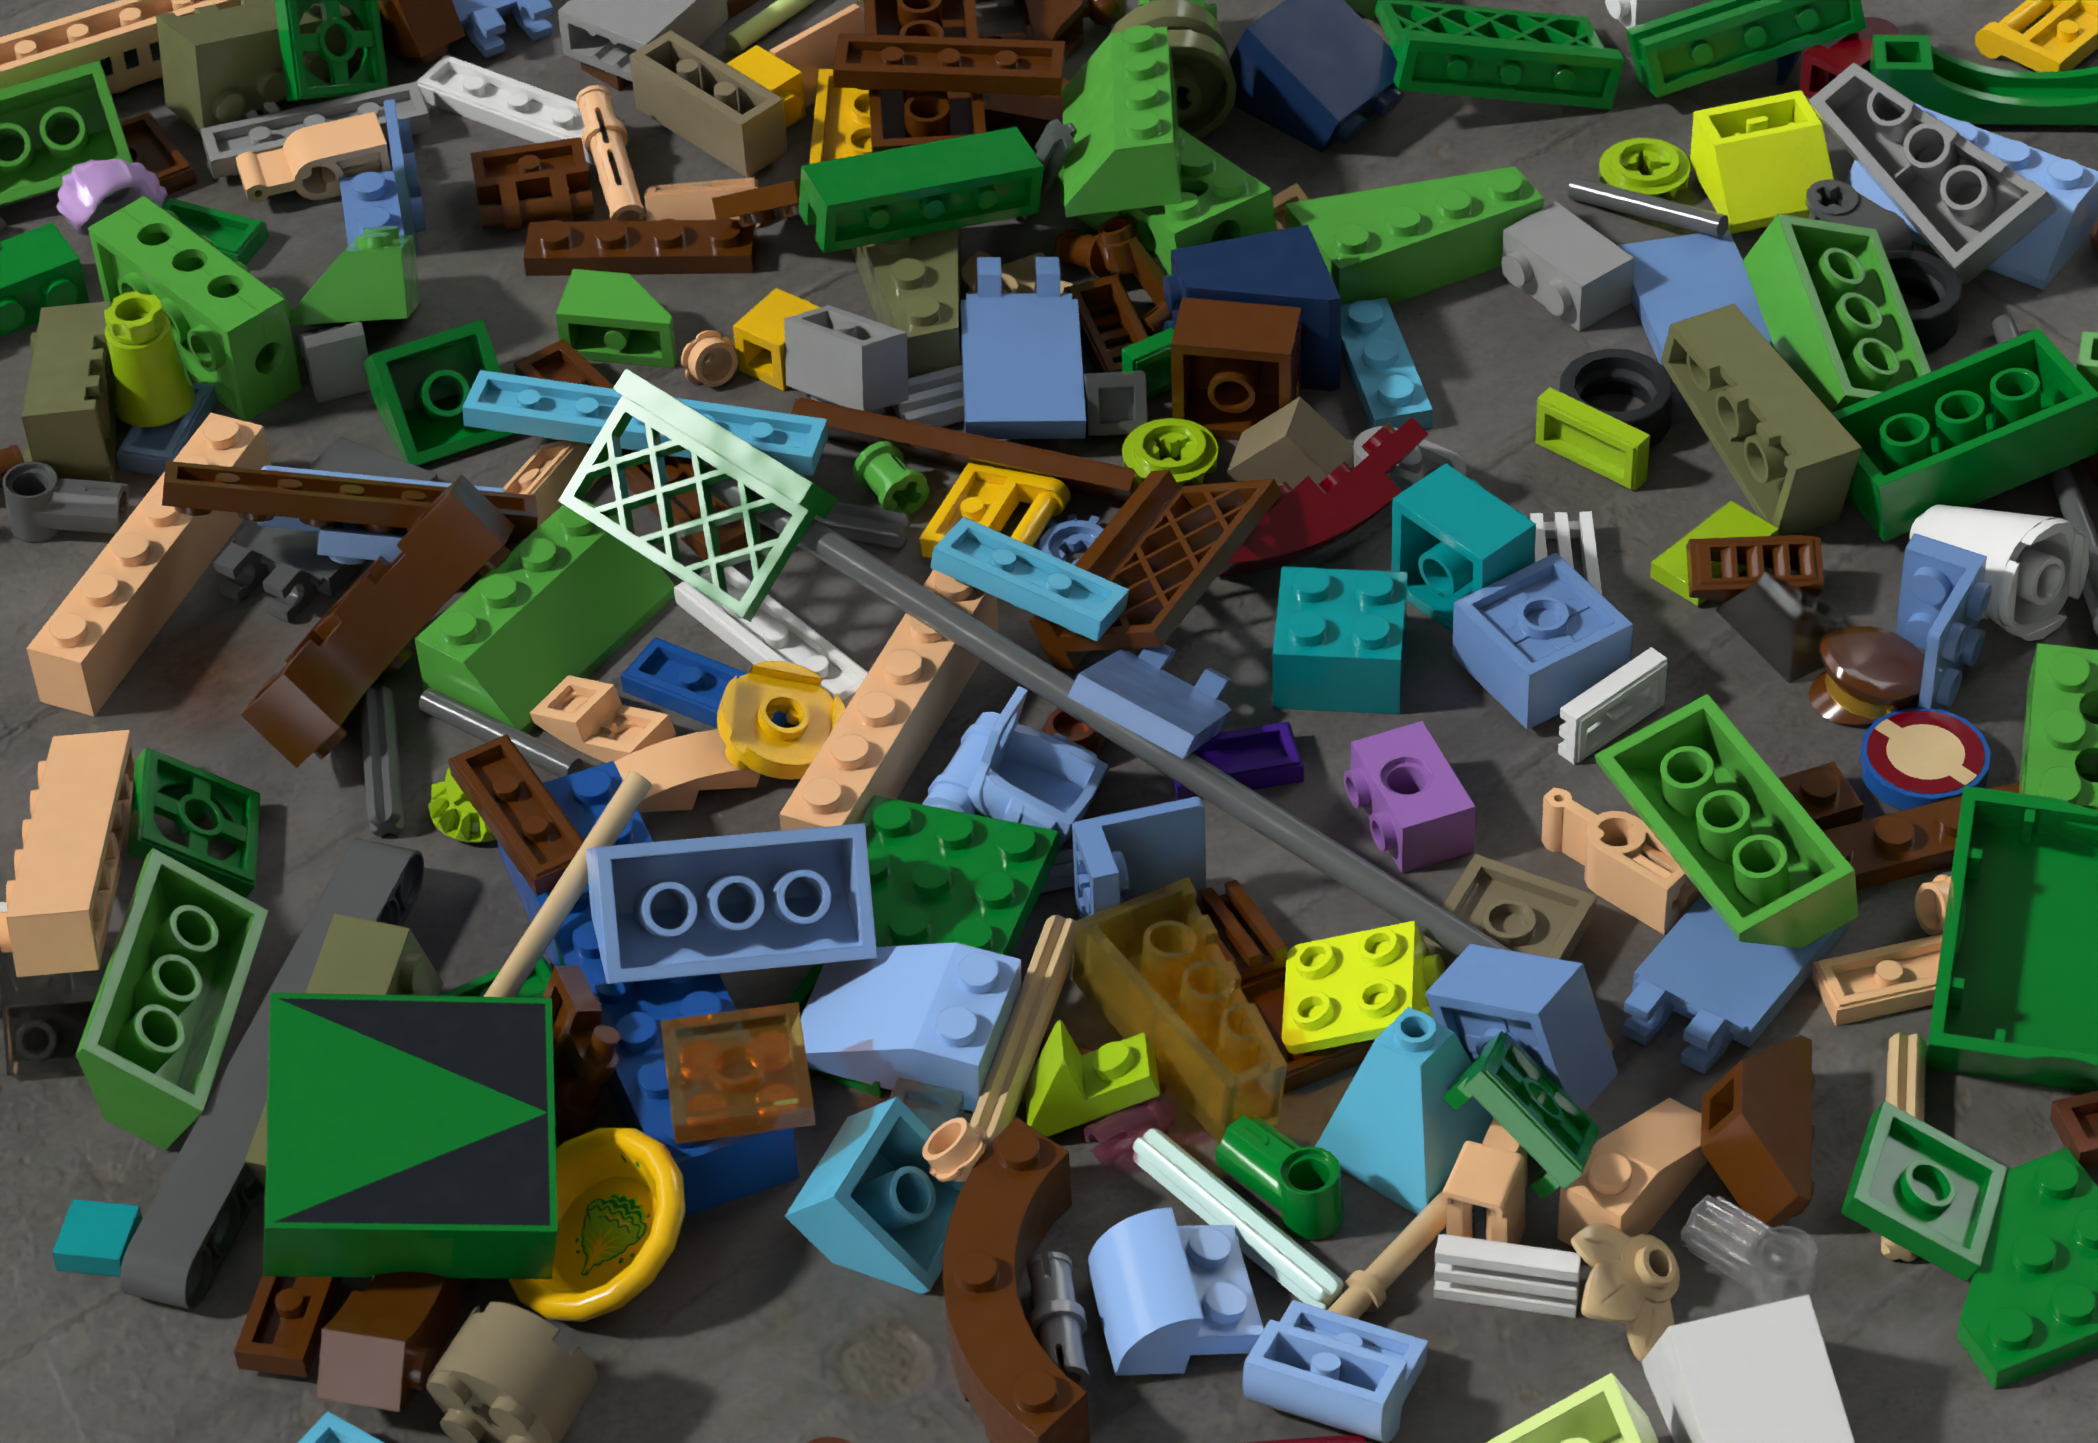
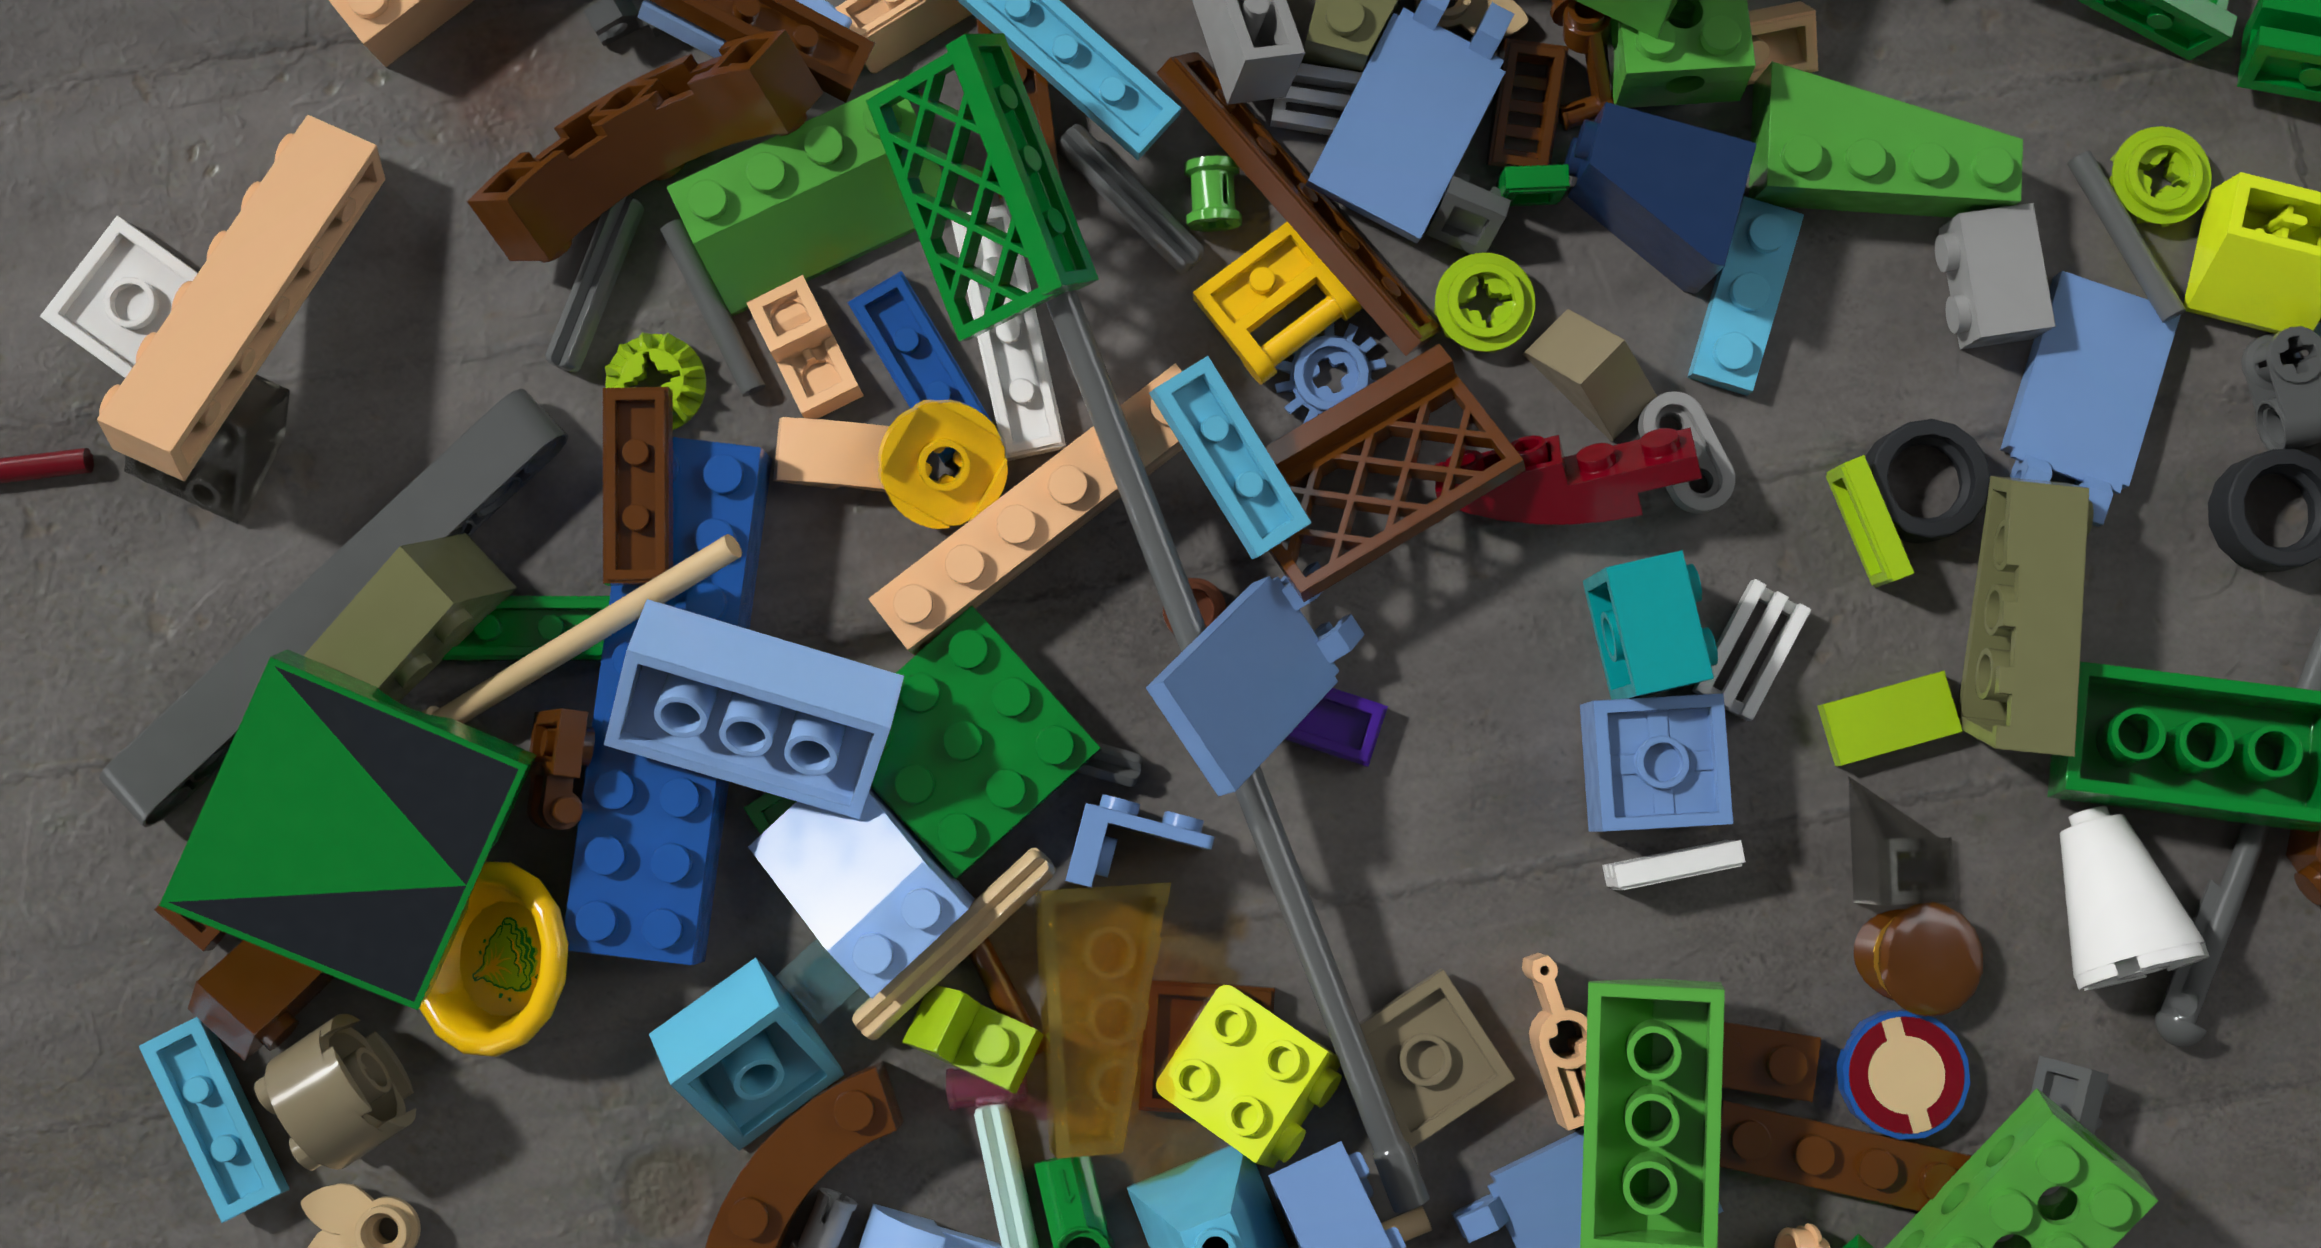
camera: 20 degrees right, 40 degrees up
(95, 1237) = (116, 702): teal tile -> none
(168, 999) = (256, 509): bright green slope -> none
(188, 794) = (323, 301): green piece -> none
(737, 1073) = (655, 914): clear orange plate -> none
(954, 1150) = (799, 1061): light nougat plate -> none
(1018, 773) = (1102, 647): light blue piece -> none
(1234, 363) = (1595, 256): reddish brown brick -> none
(1254, 923) = (1199, 873): reddish brown tile -> none
(1340, 640) = (1486, 646): teal brick -> none
(1410, 797) = (1457, 836): medium lavender brick -> none
(1780, 553) = (1939, 802): reddish brown slope -> none
(1834, 309) = (2183, 538): bright green slope -> none
(1940, 613) = (2042, 968): medium blue bracket -> none

